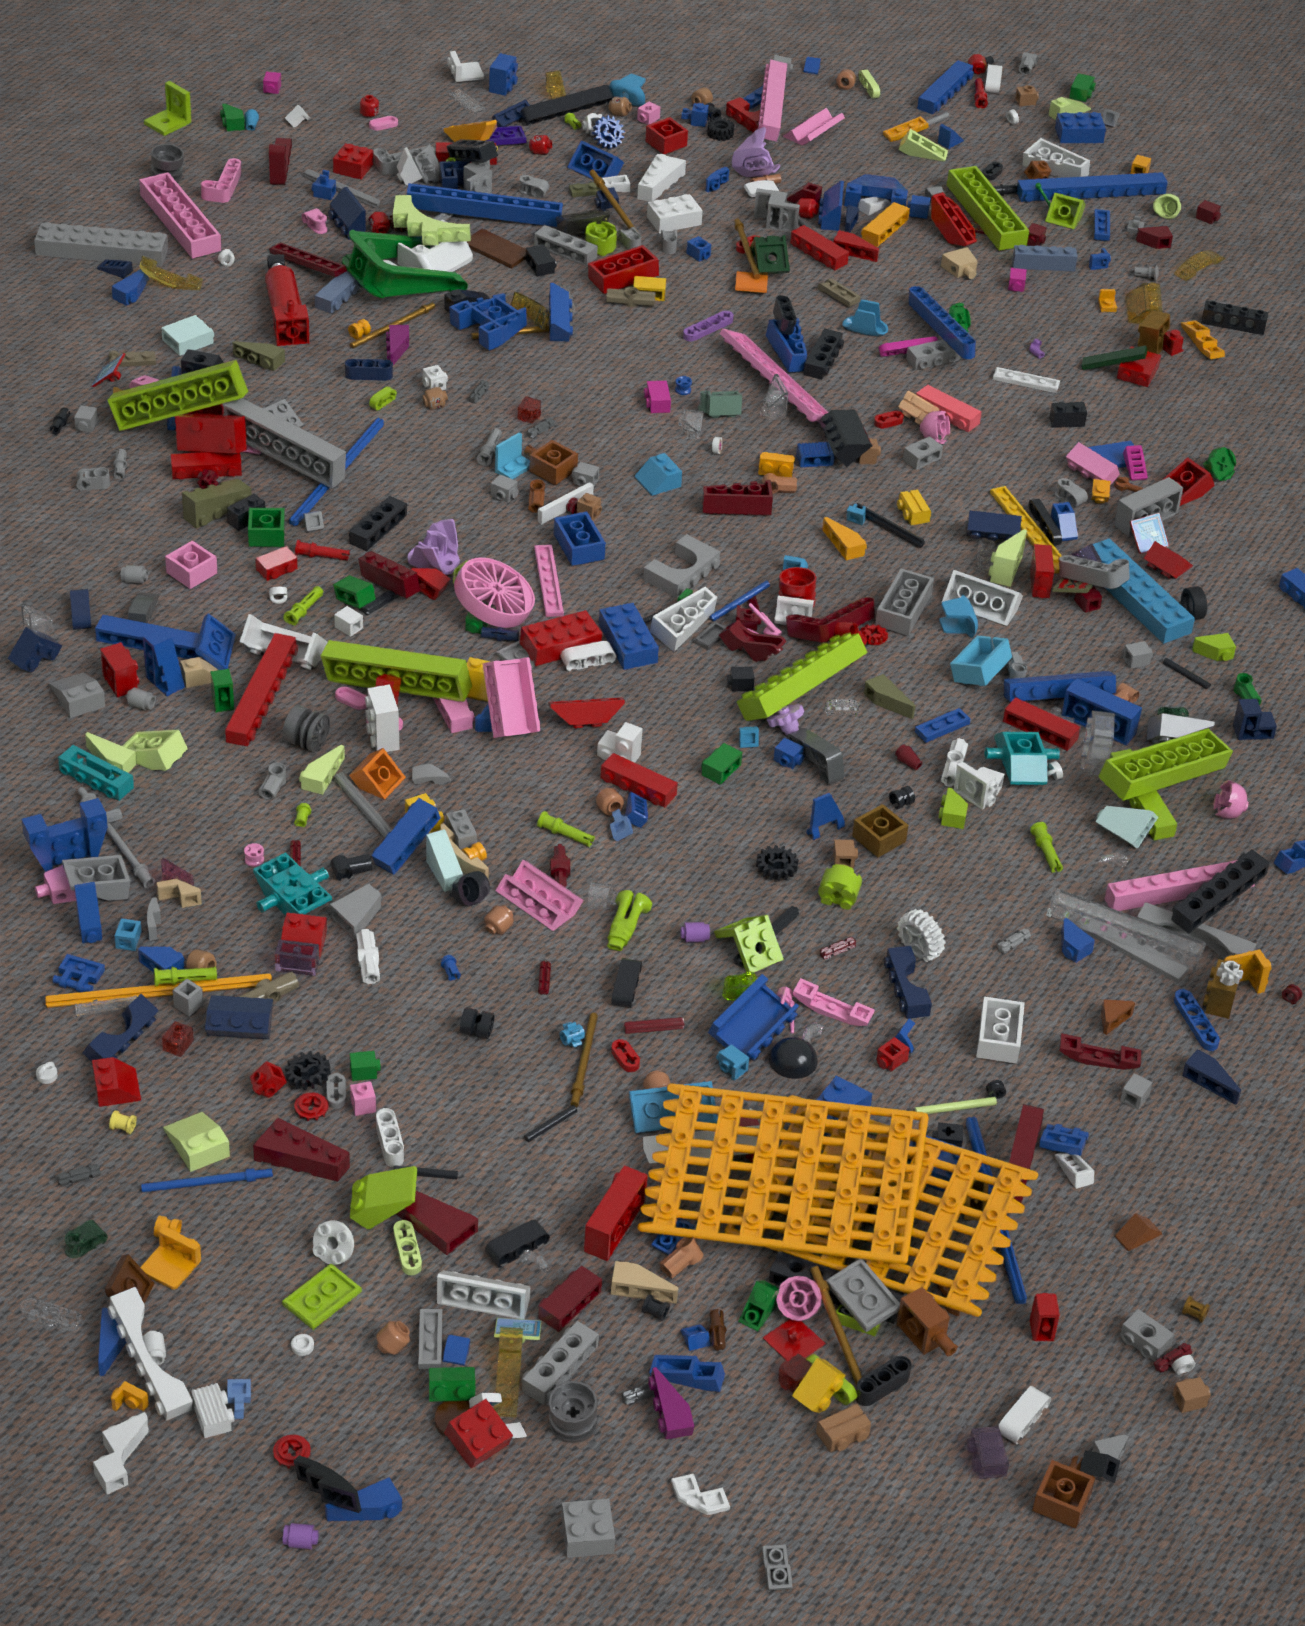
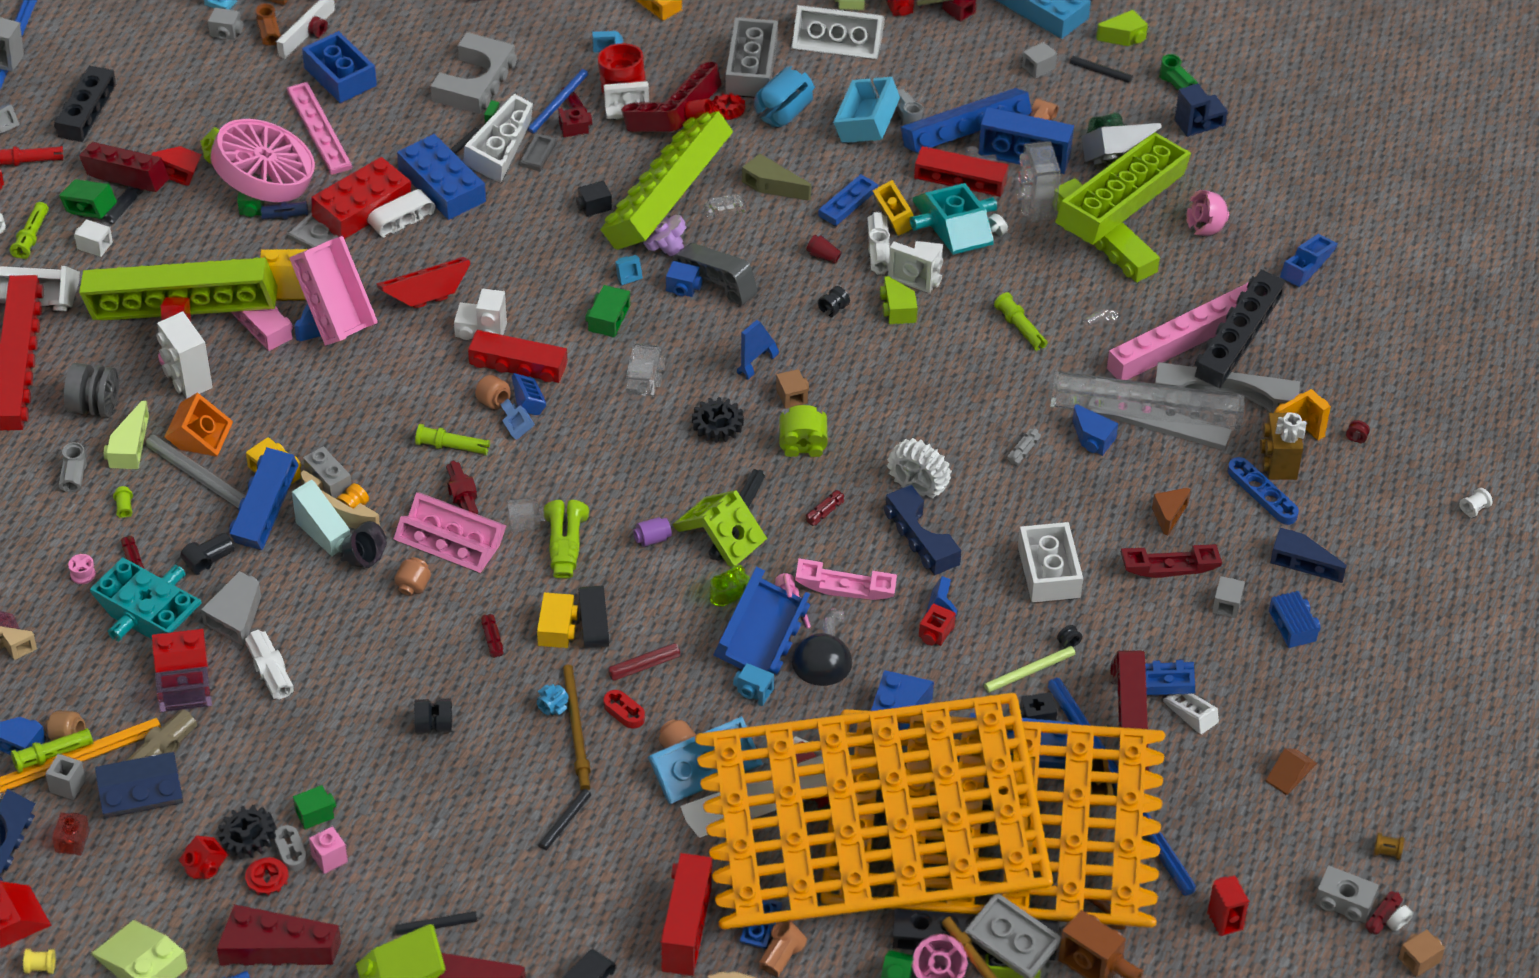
camera: 15 degrees left, 5 degrees up
(351, 698) = (131, 335): bright pink tile -> none
(389, 1137) = (378, 891): white beam -> none
(427, 773) = (260, 409): light grey slope -> none
(438, 548) = (171, 120): lavender piece -> none
(449, 964) = (371, 647): blue pin -> none
(590, 504) = (335, 21): medium nougat brick -> none
(596, 978) = (556, 620): none -> yellow brick
(733, 812) = (644, 370): none -> clear brick
(756, 645) = (600, 153): dark red arch -> none
(771, 629) = (608, 130): bright pink plant -> none
(880, 830) = (824, 349): pearl gold brick -> none
(918, 628) = (784, 97): none -> dark azure cylinder
(959, 617) = (822, 61): dark azure piece -> none
(975, 737) = (894, 207): none -> yellow brick
(1127, 823) = (1102, 270): light aqua slope -> none
(1183, 1121) = (1294, 619): none -> blue brick

